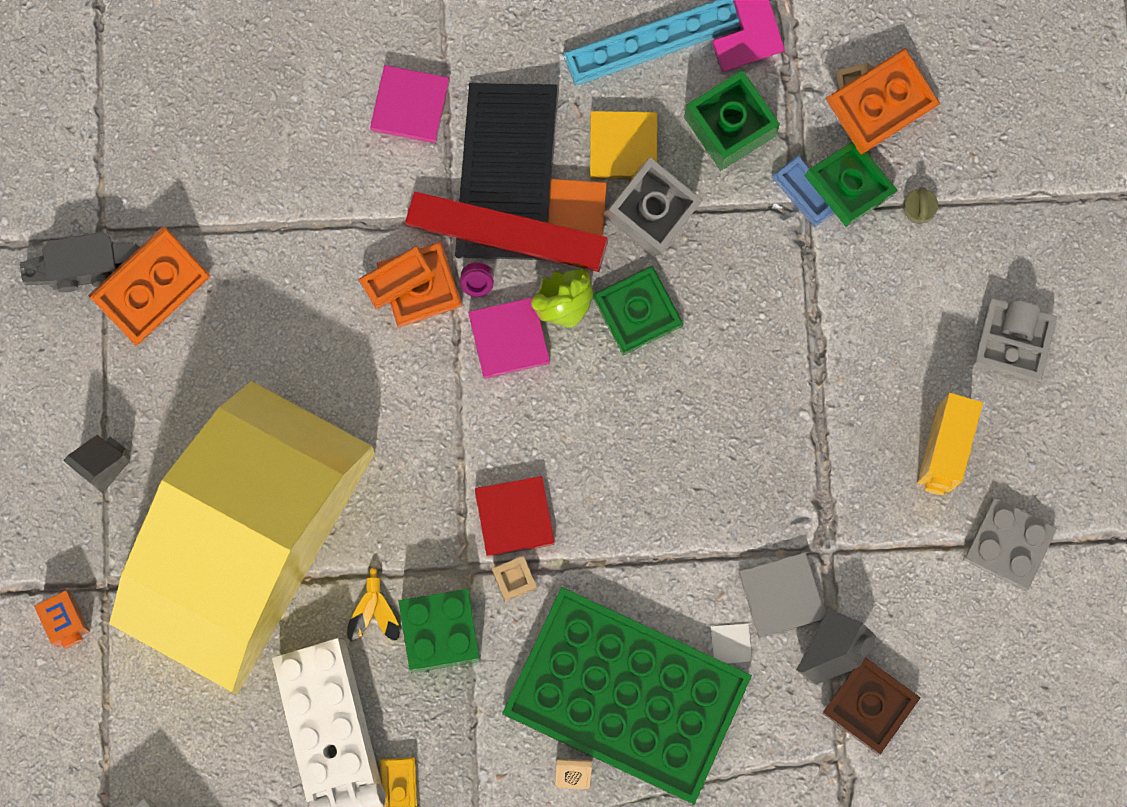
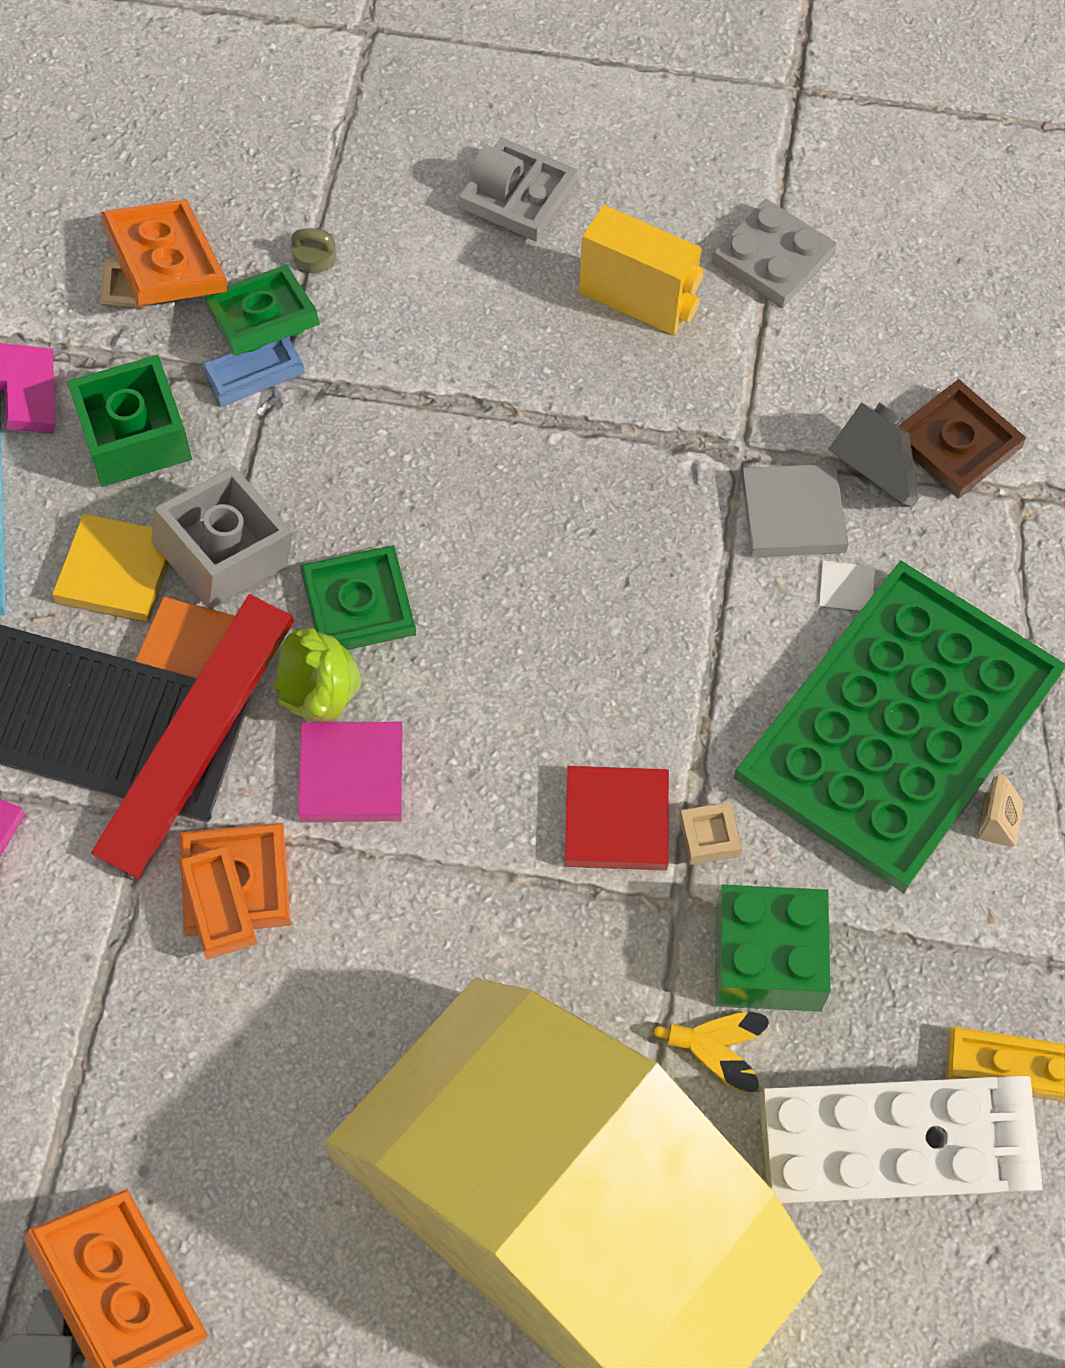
camera: 75 degrees left, 15 degrees down
(477, 279) = (252, 792): magenta tile -> none

